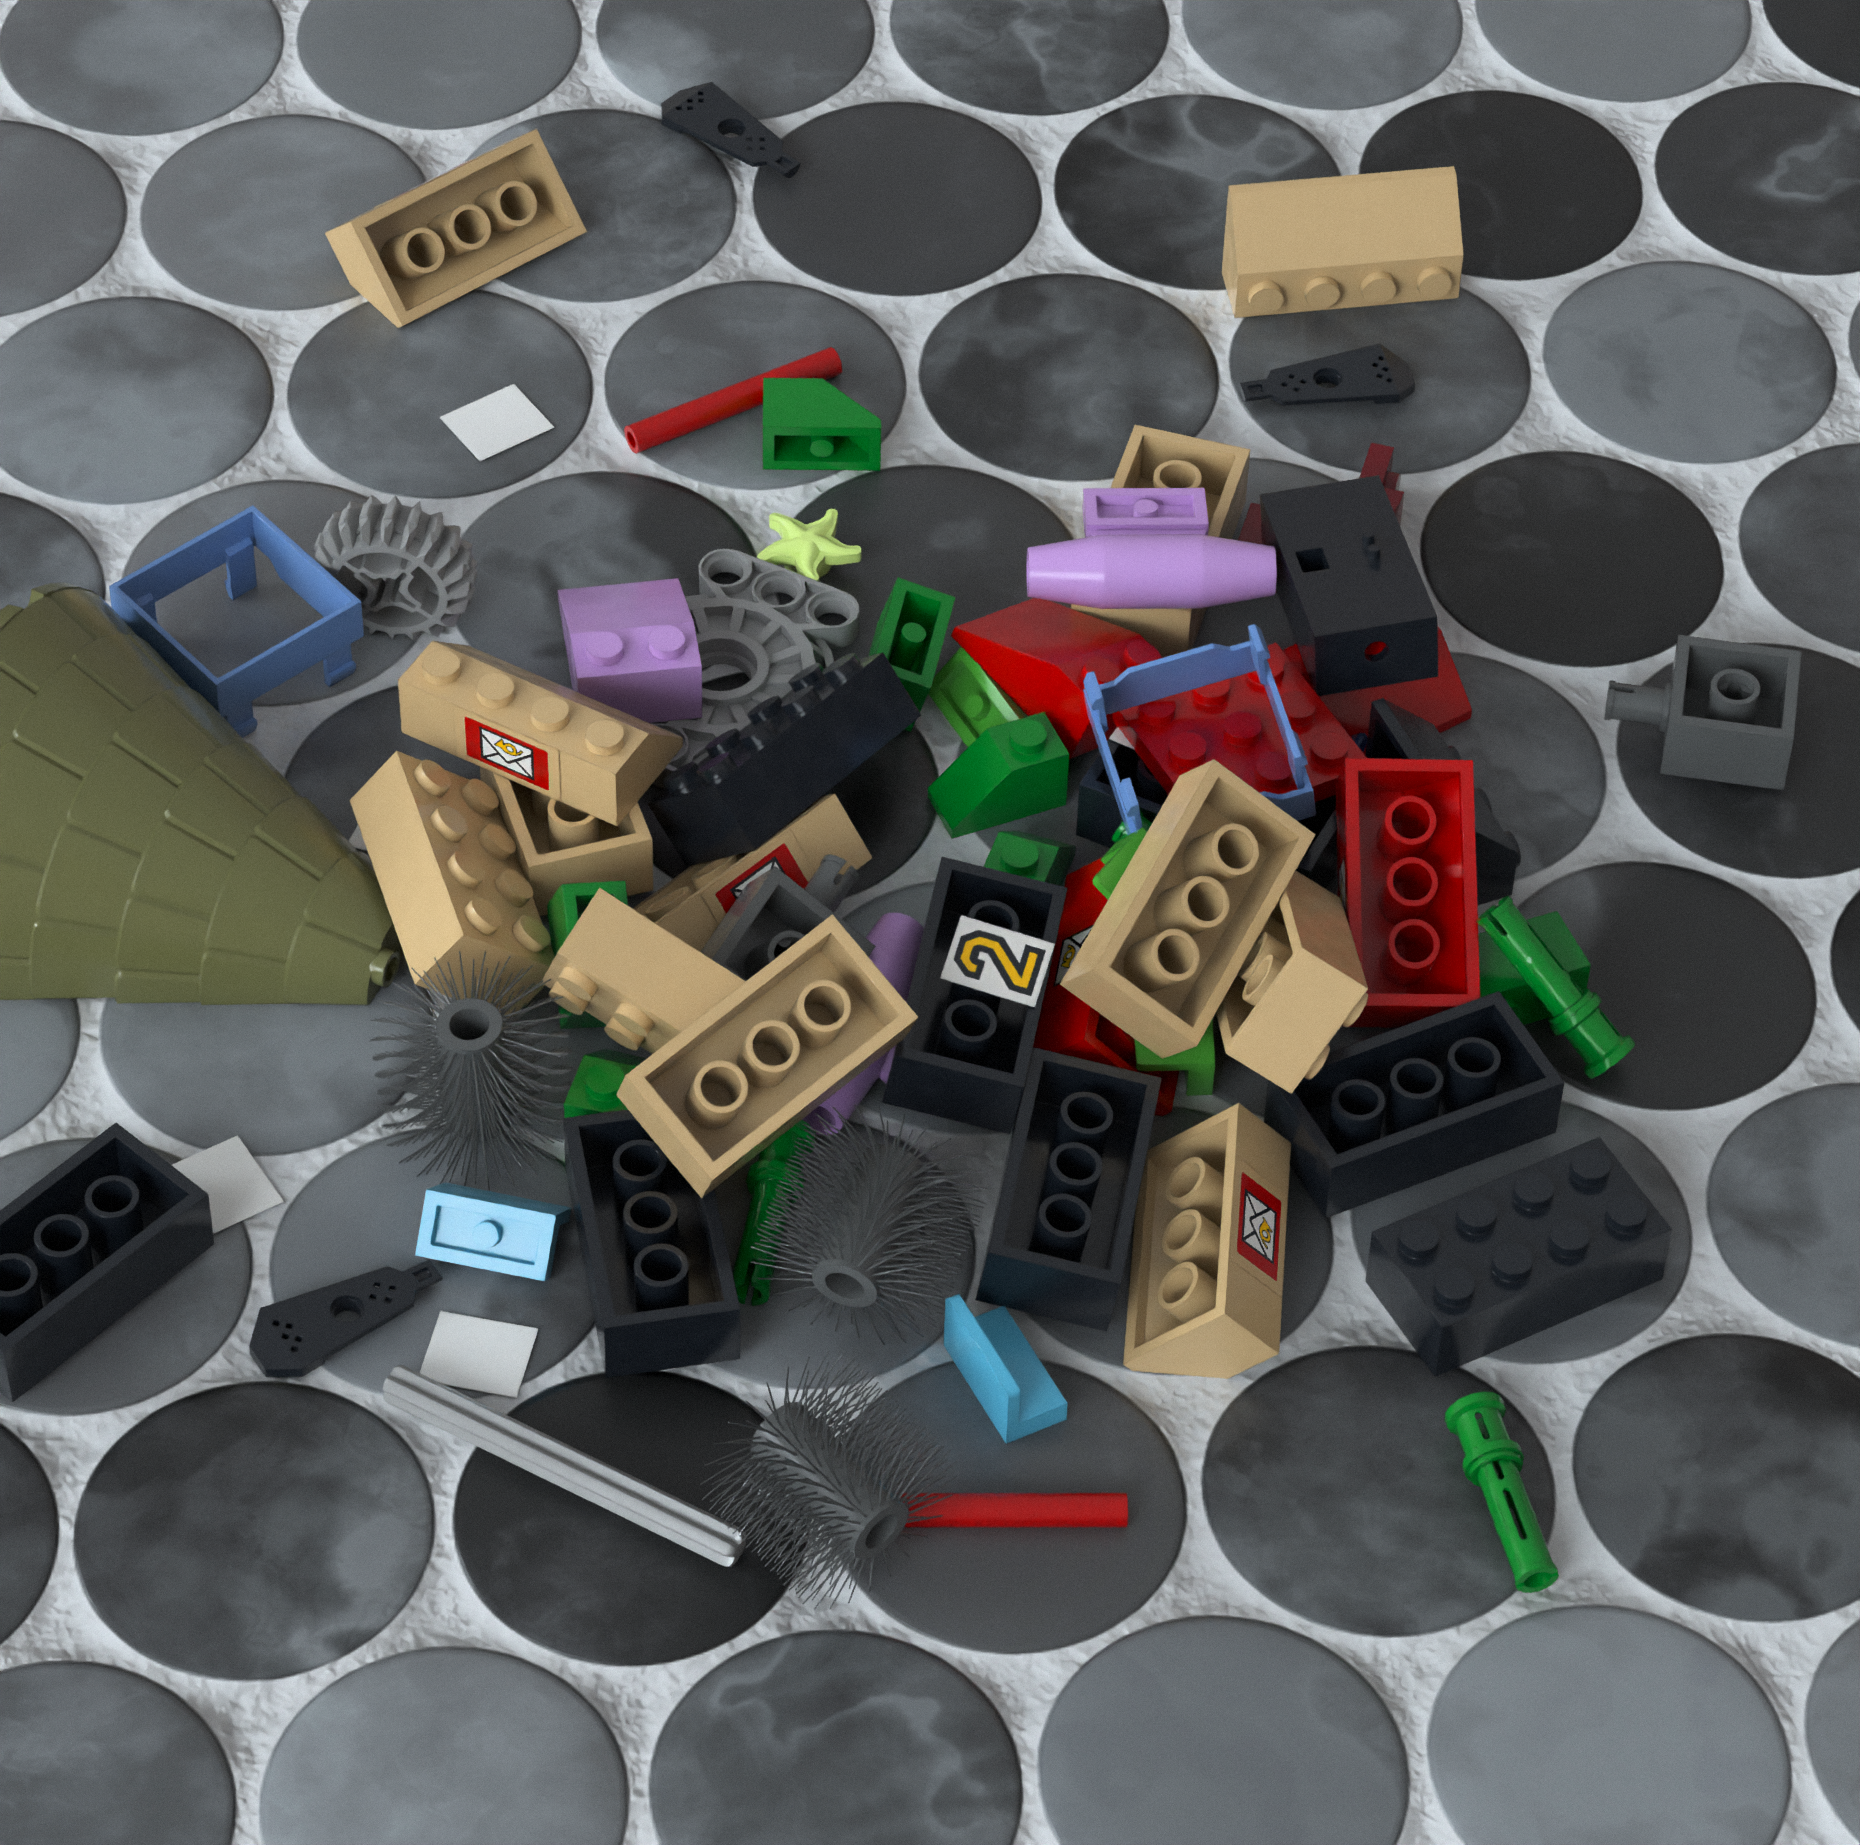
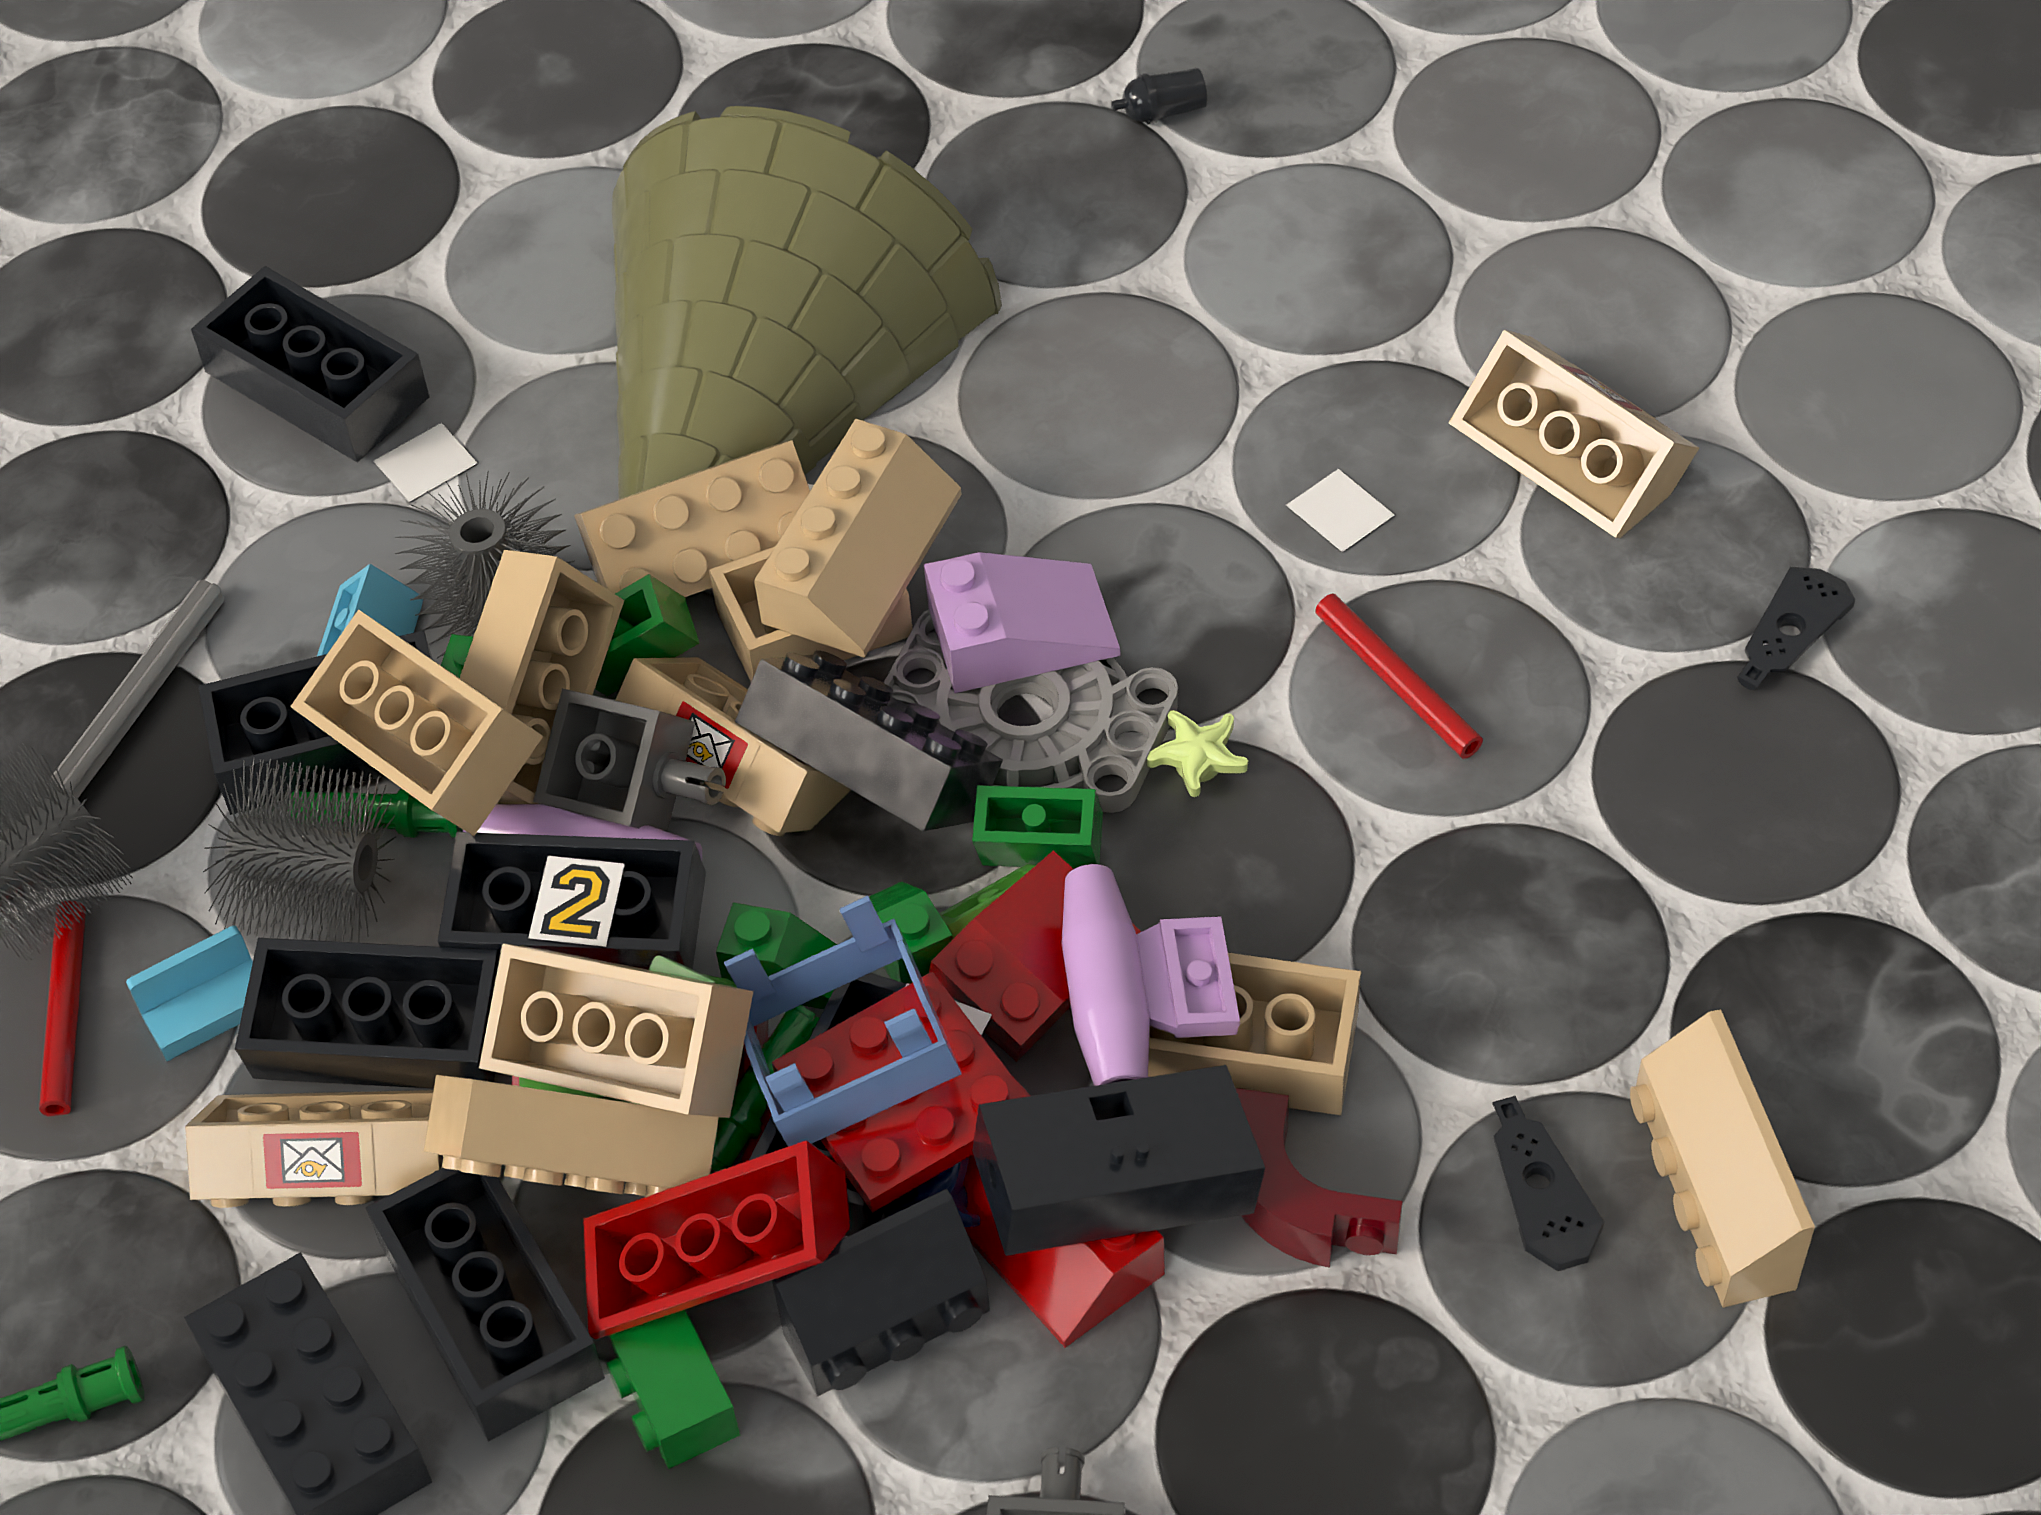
camera: 90 degrees right, 5 degrees up
(234, 544) = (965, 299): medium blue piece -> none
(303, 1330) = (270, 527): black piece -> none
(399, 565) = (1075, 436): light grey gear -> none
(478, 1354) = (249, 643): white sticker -> none
(817, 428) = (1359, 730): green slope -> none
(1572, 1010) = (604, 1428): green pin -> none

